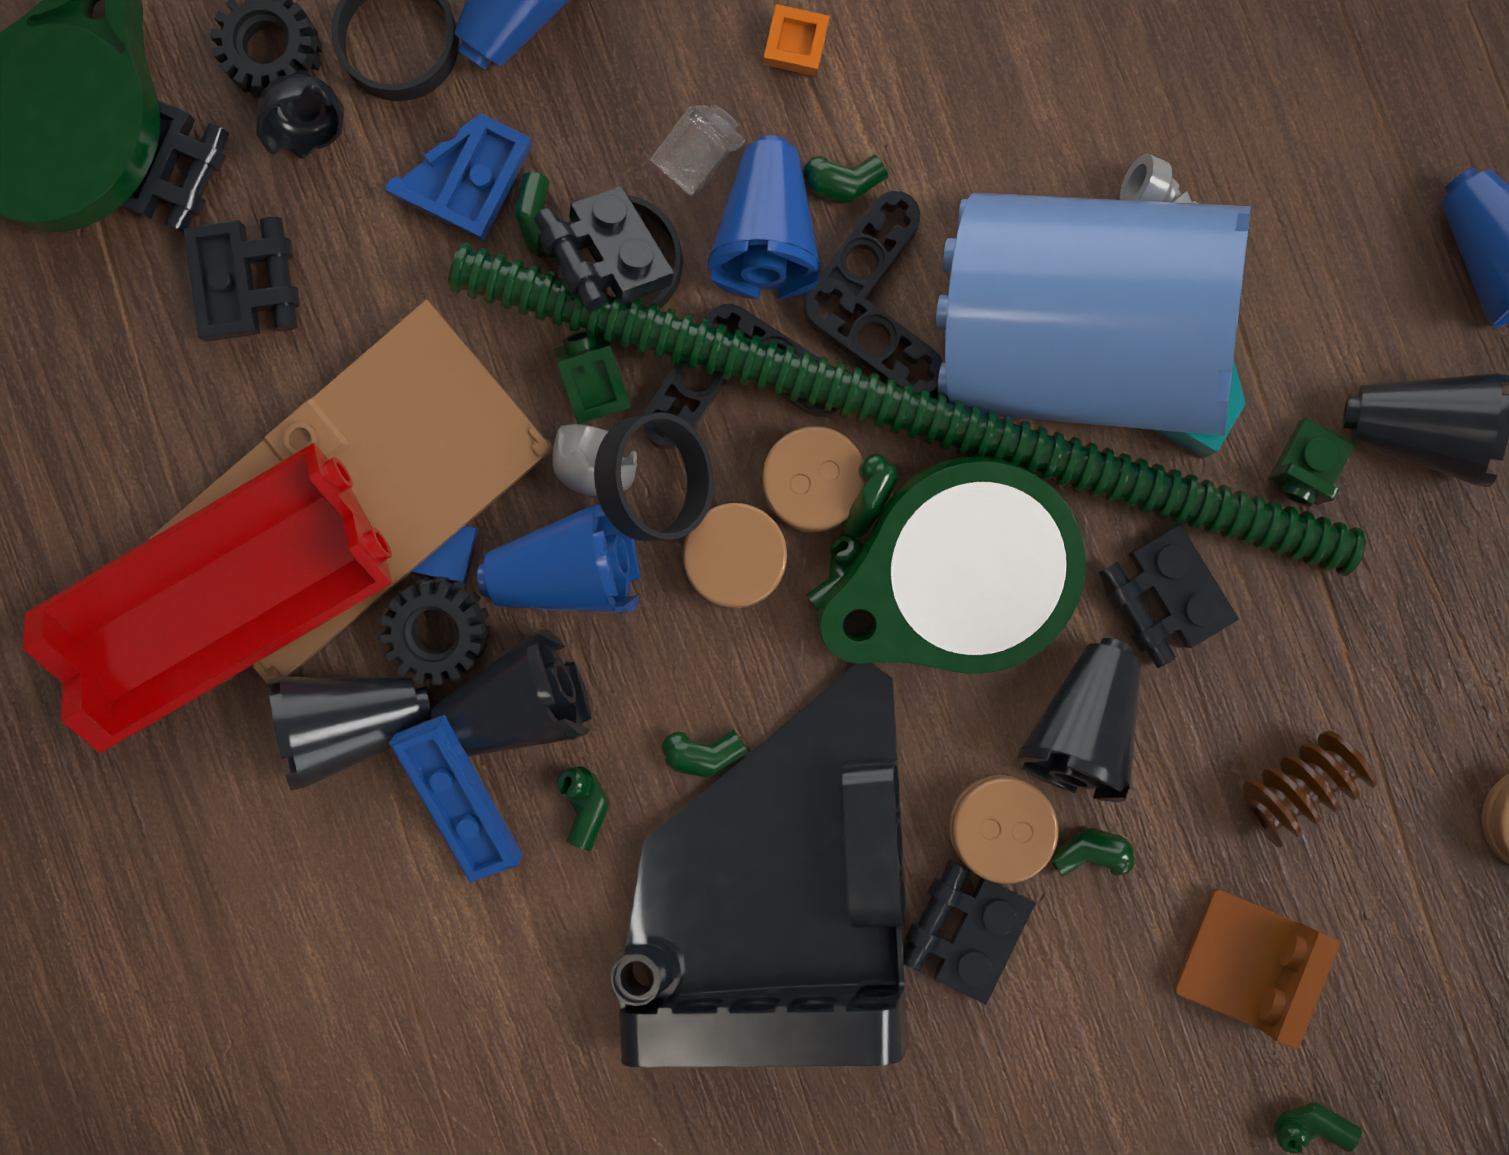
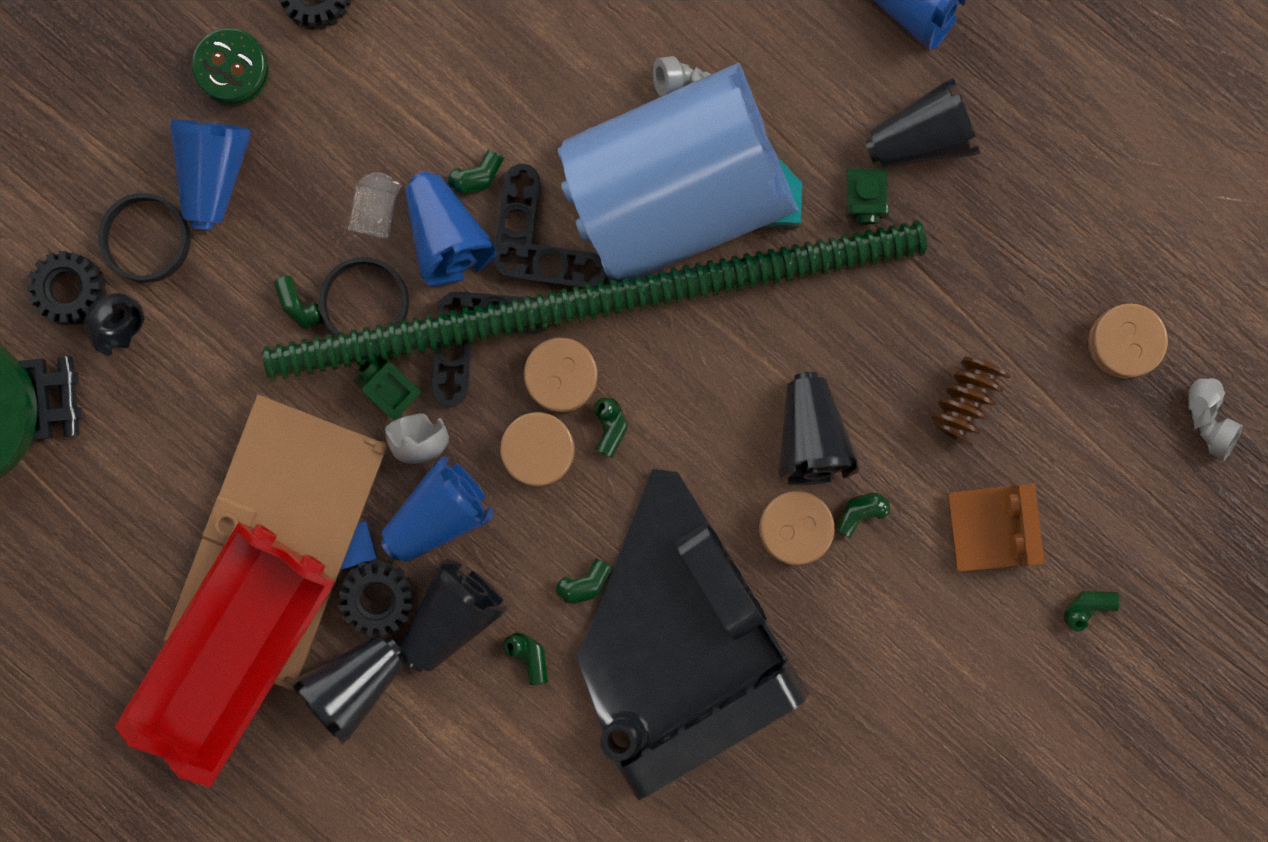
camera: 25 degrees left, 0 degrees up
(223, 278) = (121, 451): black plate -> none
(456, 798) = (447, 694): blue tile -> none
(466, 177) = (238, 303): blue wing -> none
(618, 242) = (359, 295): black plate -> none
(698, 470) = (486, 409): black tyre -> none
(796, 40) = (399, 104): orange plate -> none
(871, 500) = (603, 372): dark green arm -> none
(961, 572) = (683, 383): piece -> none
(982, 939) = (822, 604): black plate -> none
(1181, 586) = (827, 316): black plate -> none

